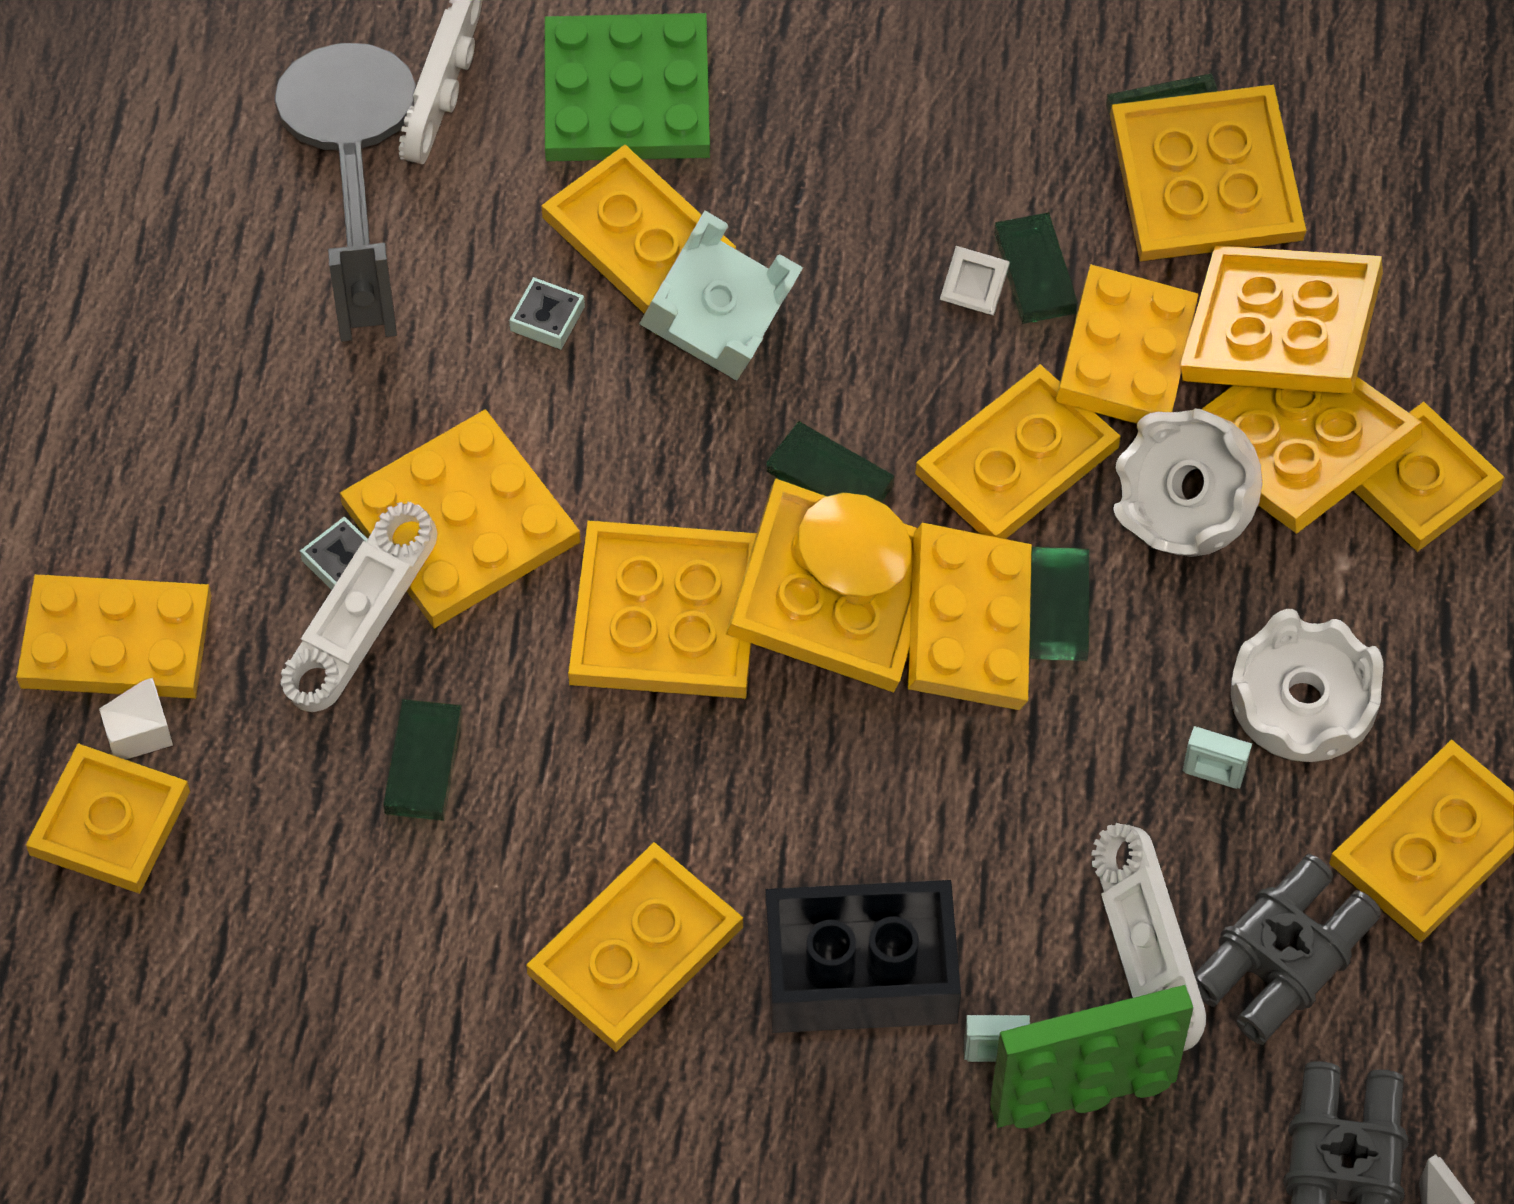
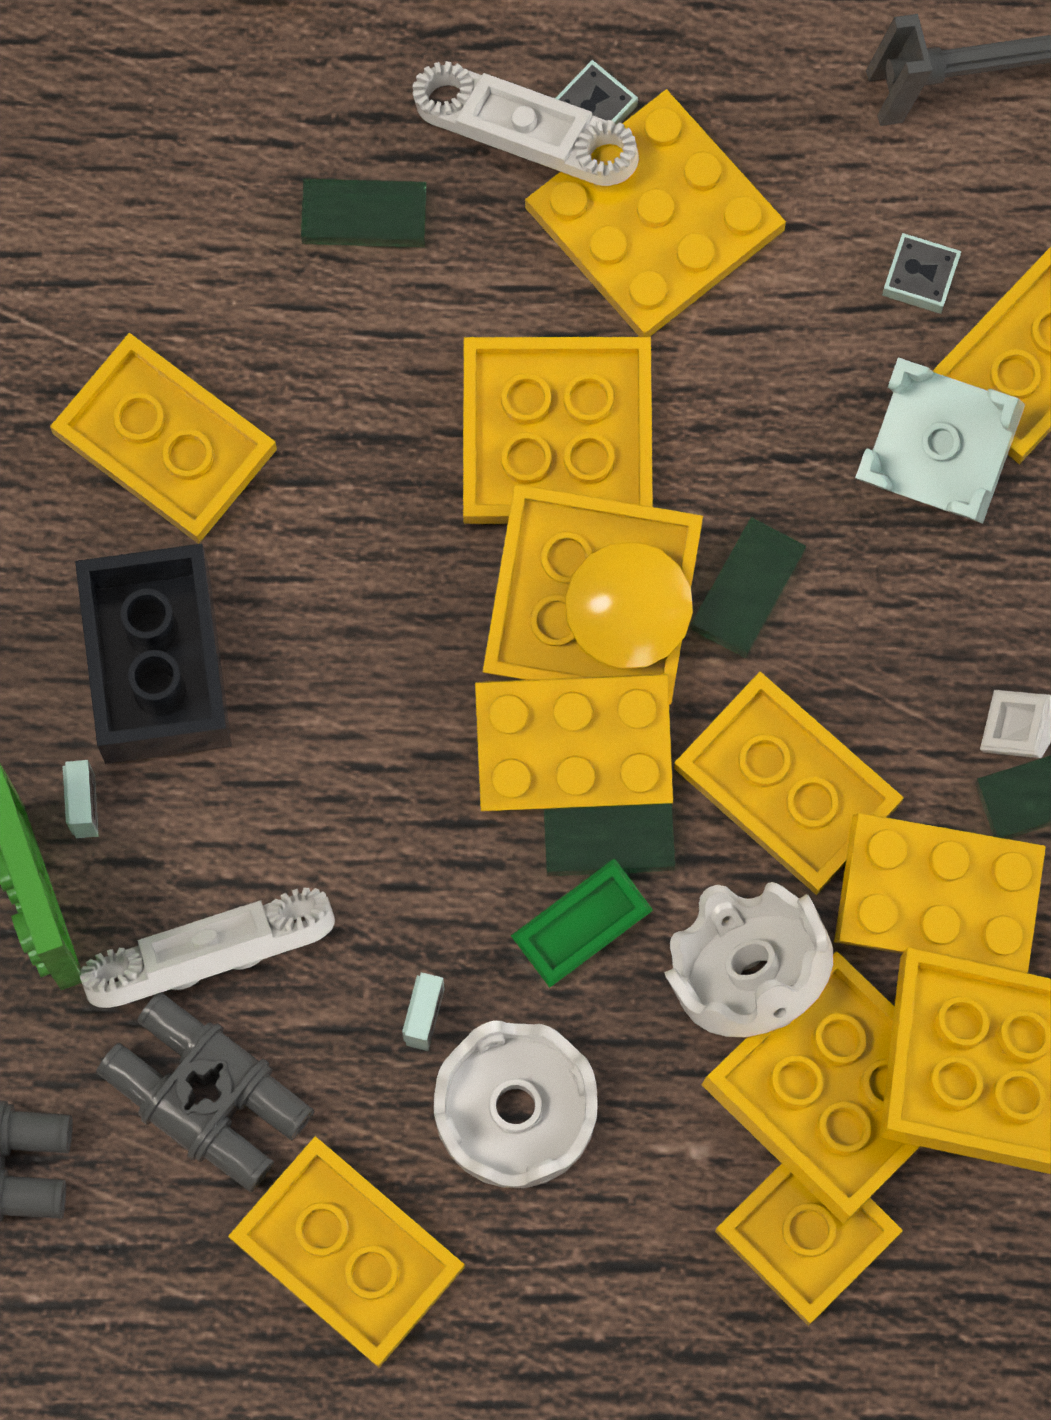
camera: 85 degrees right, 15 degrees up
(1137, 627) = (581, 922): none -> green tile

